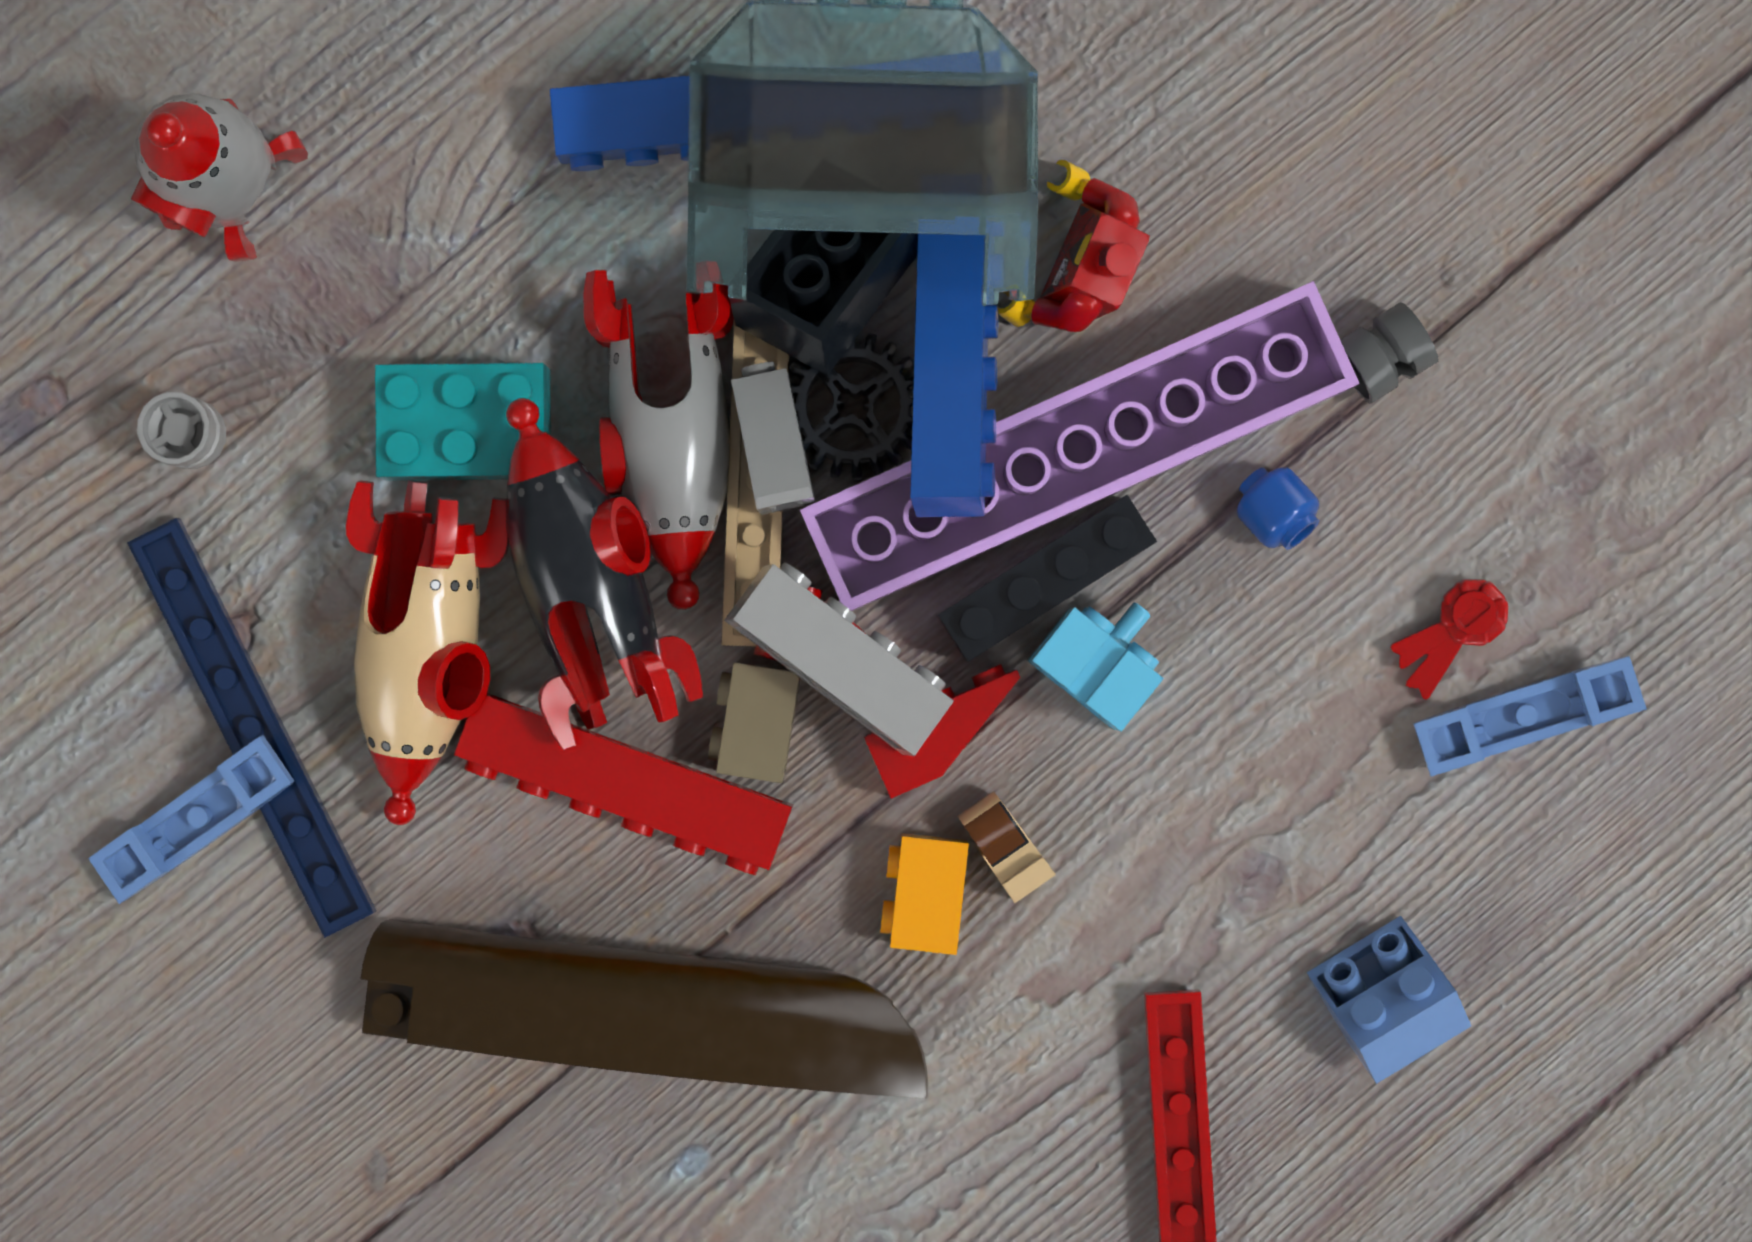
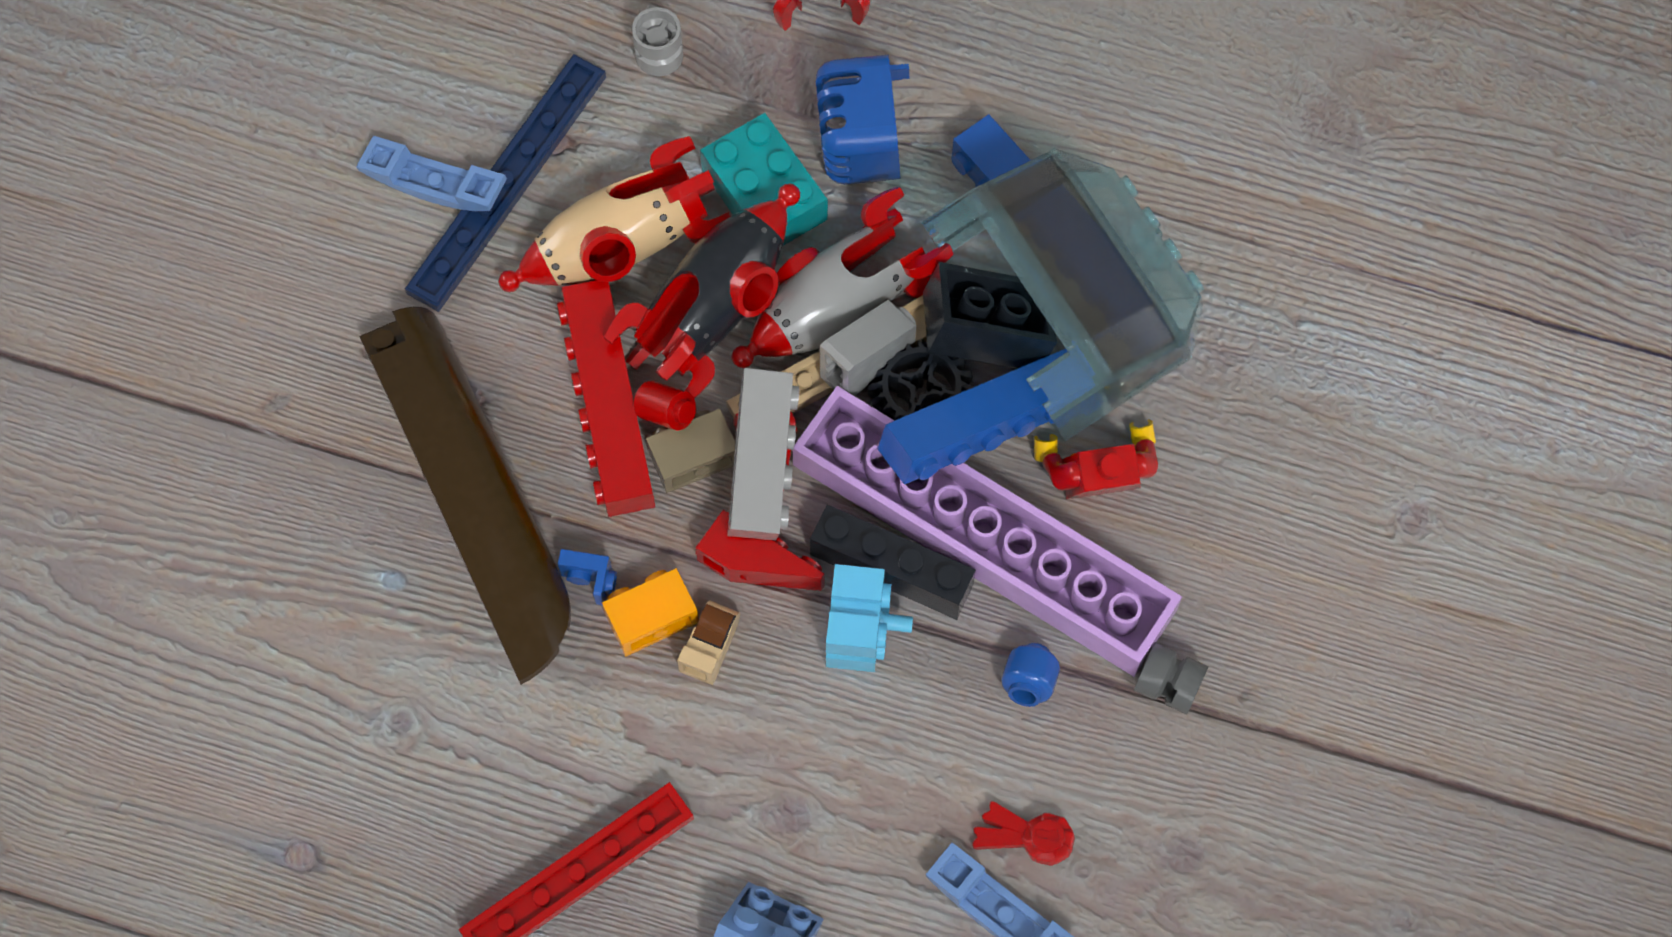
camera: 55 degrees right, 20 degrees down
(470, 244) = (870, 129): none -> blue piece
(701, 726) = (664, 405): none -> red brick
(826, 938) = (585, 567): none -> blue bracket

